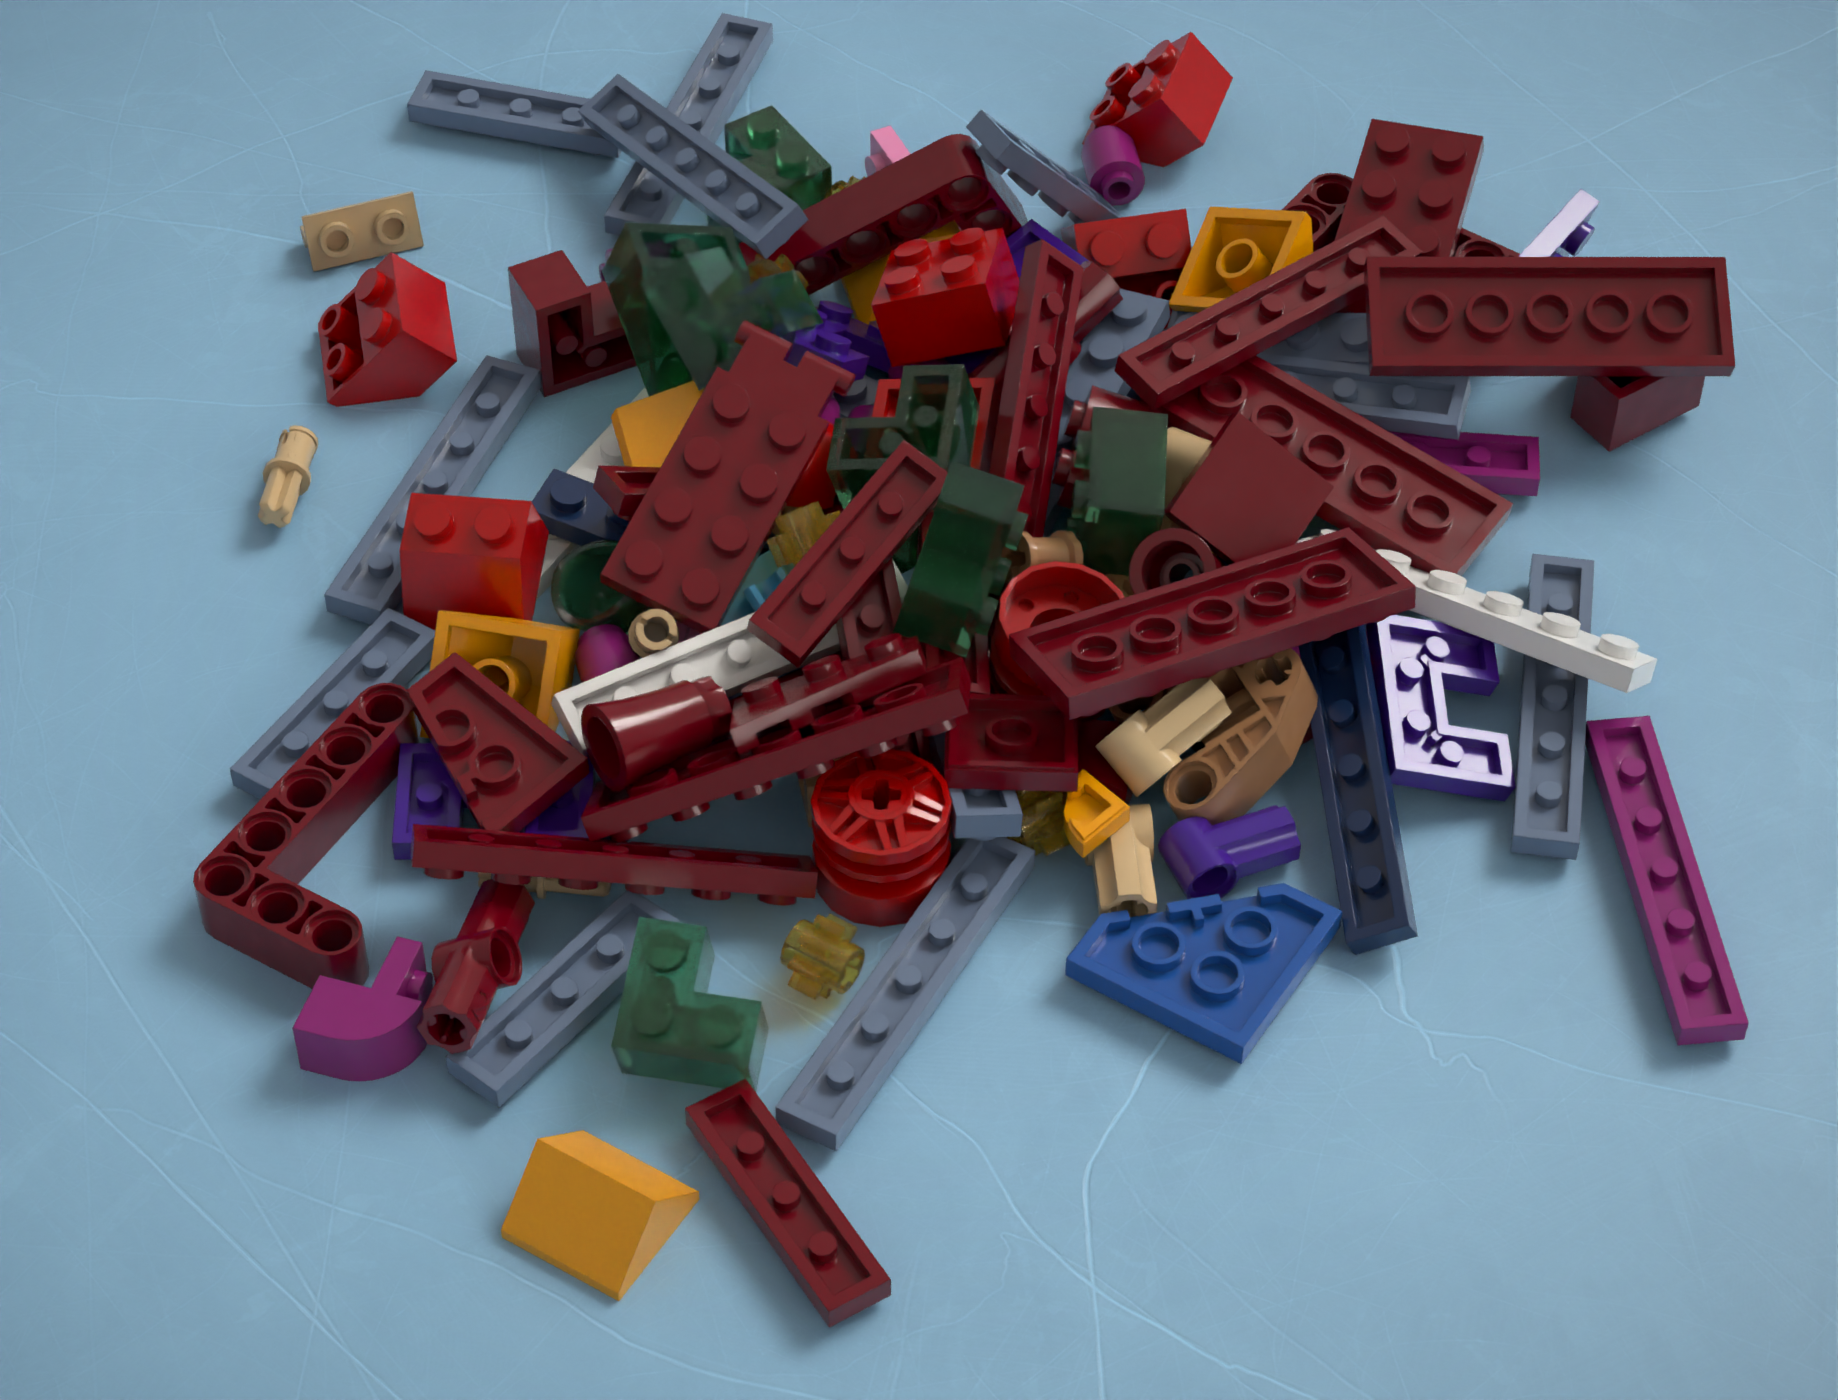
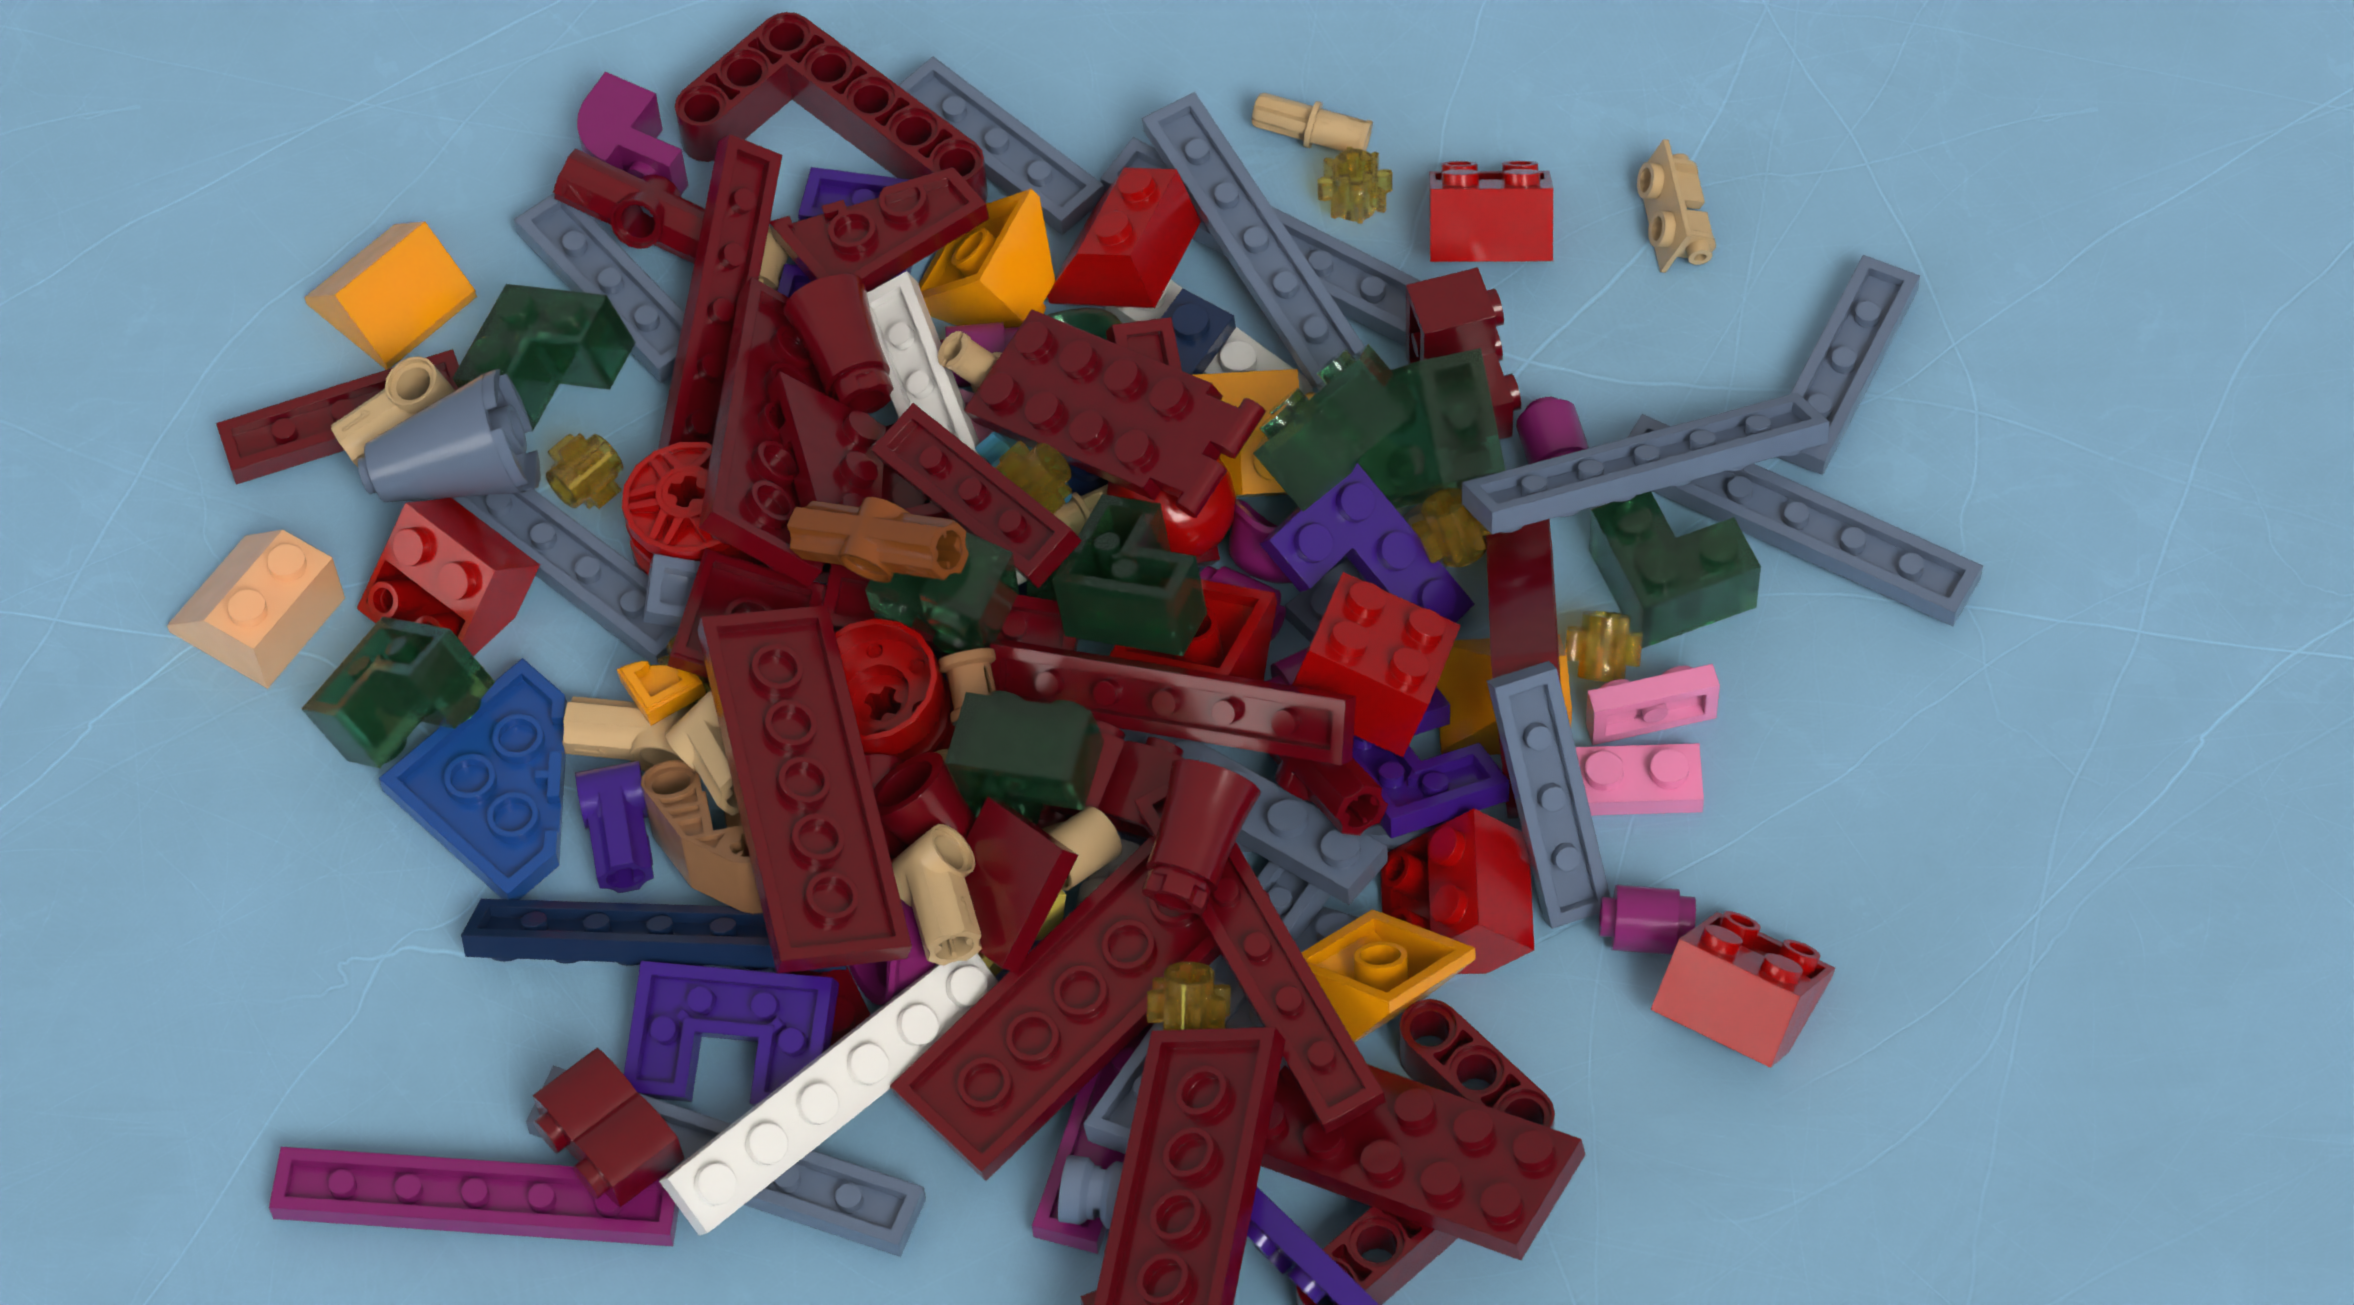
camera: 105 degrees right, 10 degrees up
(363, 432) = (1354, 185): none -> clear yellow gear
(459, 466) = (1251, 235): none -> sand blue plate
(805, 1117) = (408, 390): none -> tan piece
(848, 1024) = (456, 447): none -> sand blue cone
(961, 560) = (878, 539): none -> dark orange piece
(988, 1048) = (449, 573): none -> red slope
(1051, 1219) = (261, 604): none -> light nougat slope
(1127, 1031) = (393, 683): none -> clear green brick
(1203, 319) = (1196, 833): none -> dark red plant
(1282, 528) = (934, 884): none -> tan piece
(1331, 356) = (1188, 998): none -> clear yellow gear
(1509, 418) = (1088, 1191): none -> sand blue wheel
(1581, 754) = (607, 1128): none -> dark red brick

